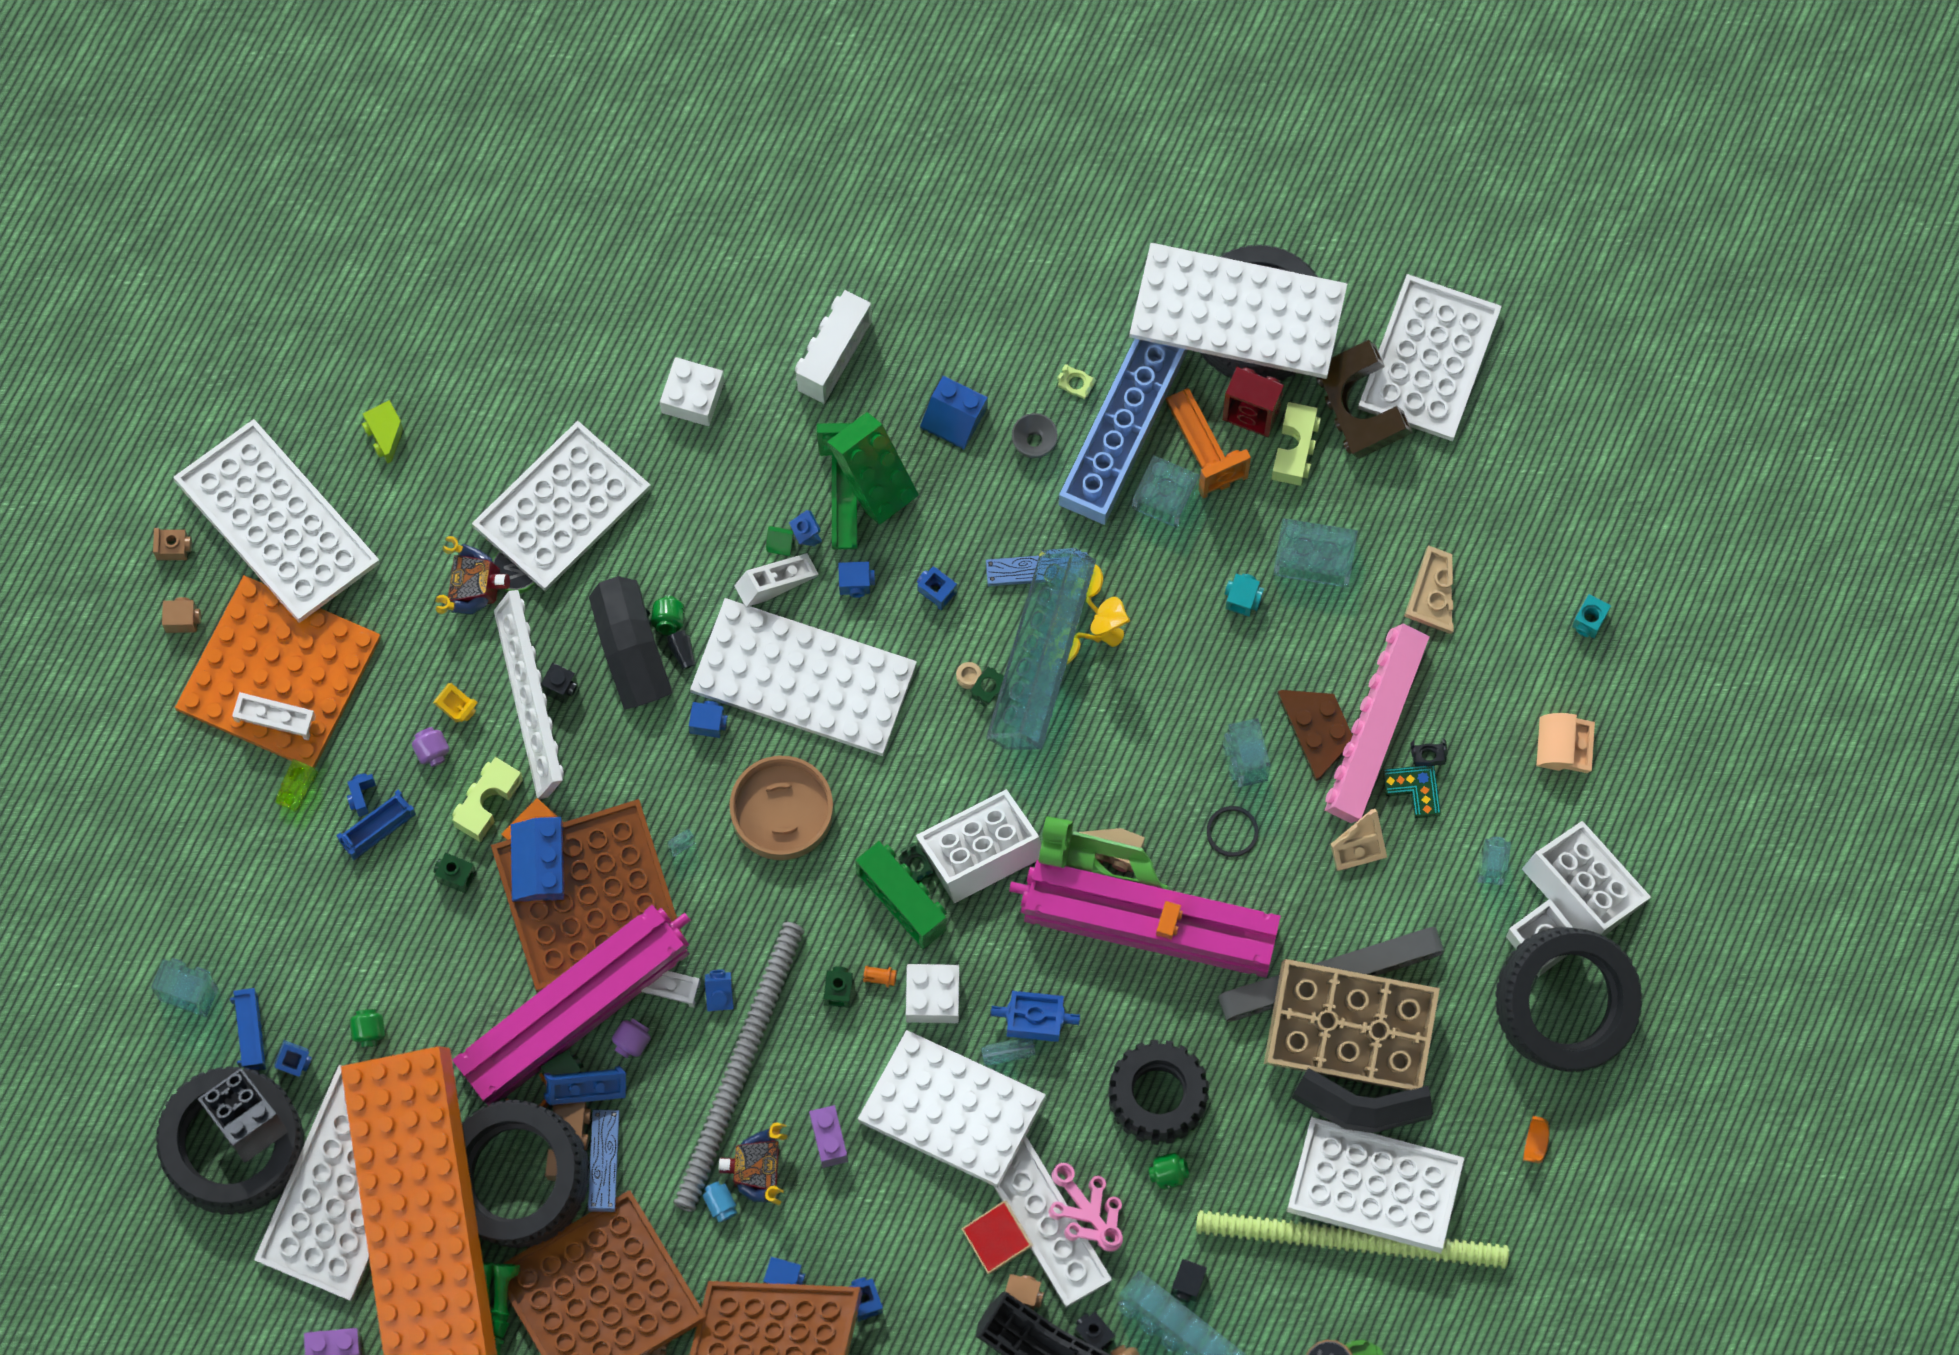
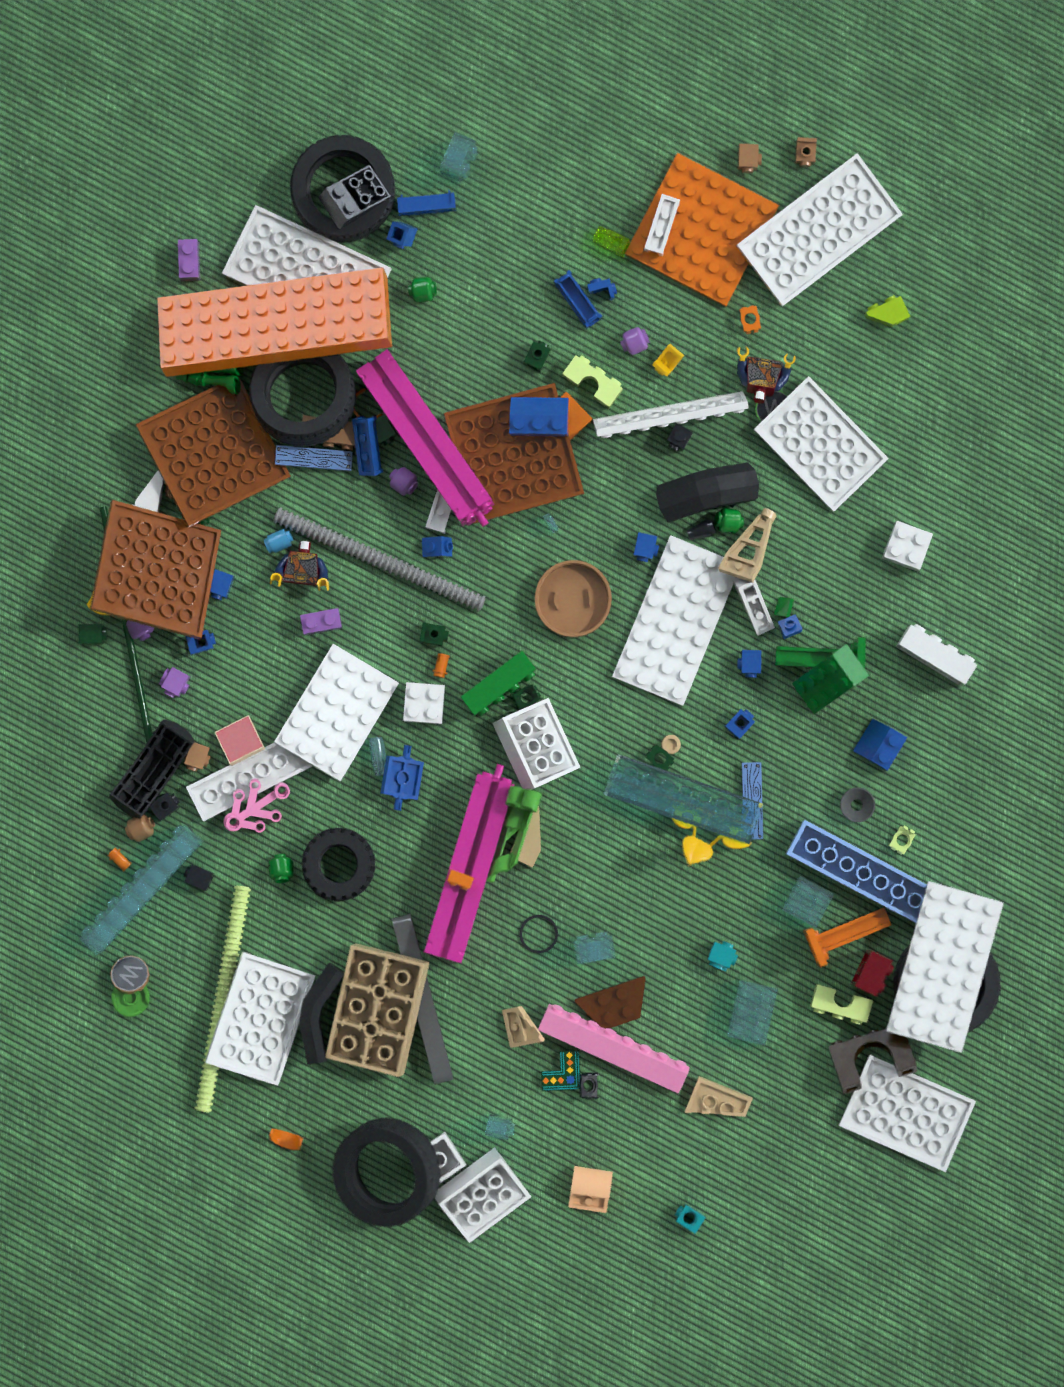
camera: 90 degrees right, 15 degrees up
(409, 604) = (749, 327): none -> orange piece
(729, 591) = (742, 567): none -> tan plate
(922, 1330) = (174, 682): none -> medium lavender brick

